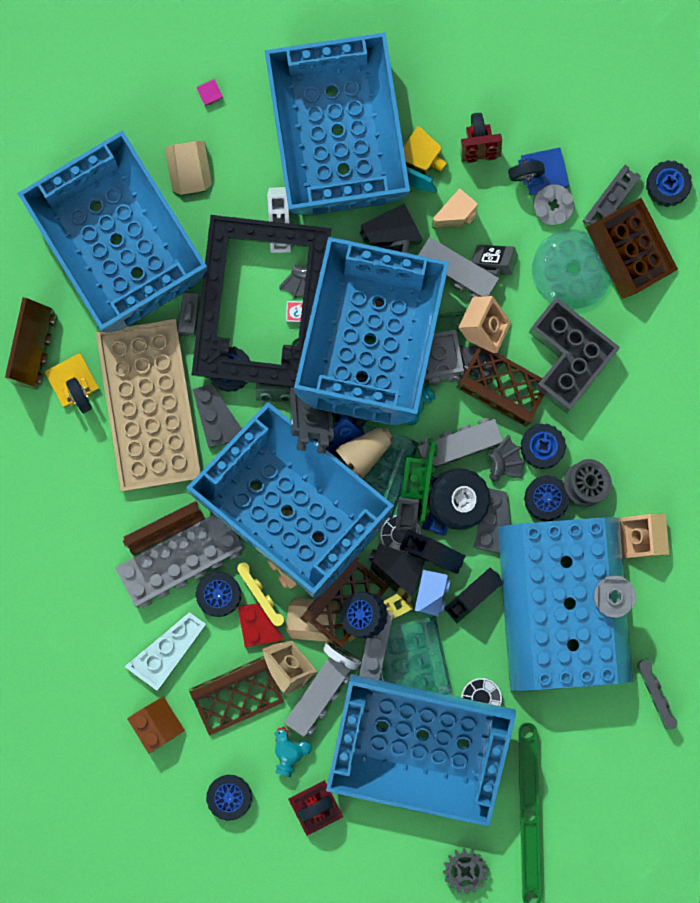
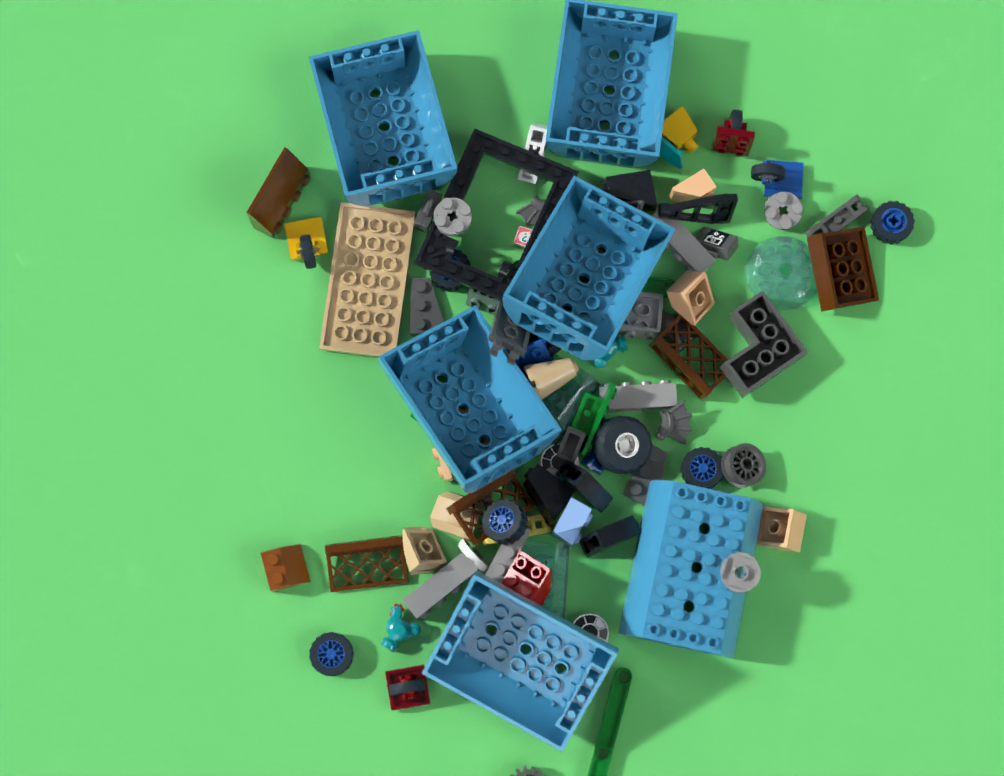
camera: 10 degrees right, 5 degrees down
(163, 528) = (347, 393): reddish brown fence -> none
(164, 654) = (309, 508): light aqua wing -> none
(179, 560) = (352, 426): light grey bracket -> none
(188, 167) = (467, 83): tan slope -> none
(209, 92) = (505, 26): dark pink tile -> none
(218, 594) = (378, 466): black wheel -> none
(224, 323) = (457, 226): none -> light grey plate
(255, 587) = (414, 470): light yellow plate -> none
(257, 626) = (404, 506): red wing -> none
(404, 664) = (529, 578): none -> red slope
(491, 226) = (722, 211): none -> black plate
(543, 446) = (712, 421): black wheel -> none
(653, 686) = (752, 685): dark grey plate -> none

